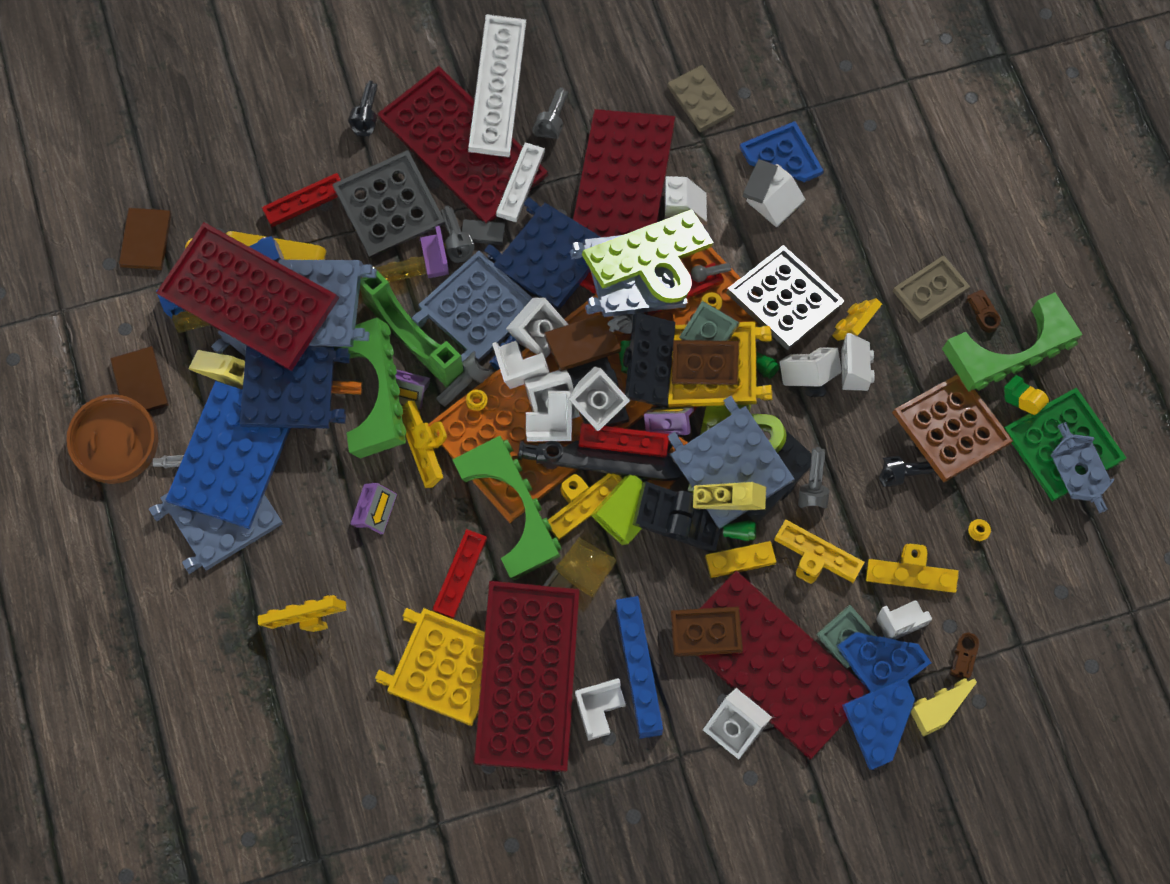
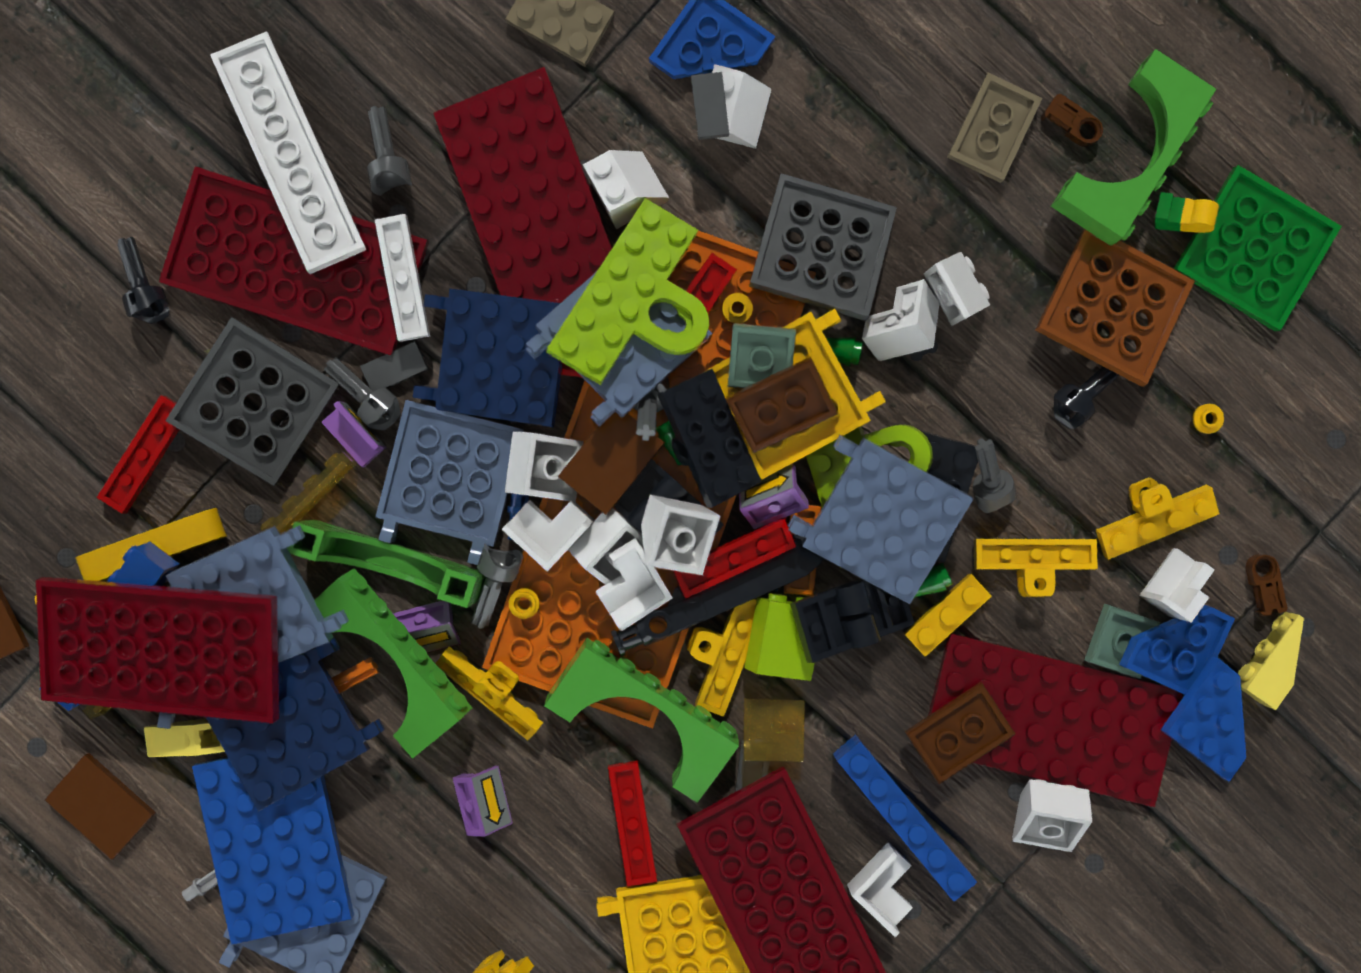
camera: 30 degrees left, 20 degrees up
(112, 439) = (116, 901): dark orange brick -> none
(700, 273) = (703, 279): dark grey bar -> none
(730, 496) = (910, 569): light yellow slope -> none
(857, 318) = (929, 228): yellow plate -> none
(1076, 451) = (1322, 283): sand blue plate -> none

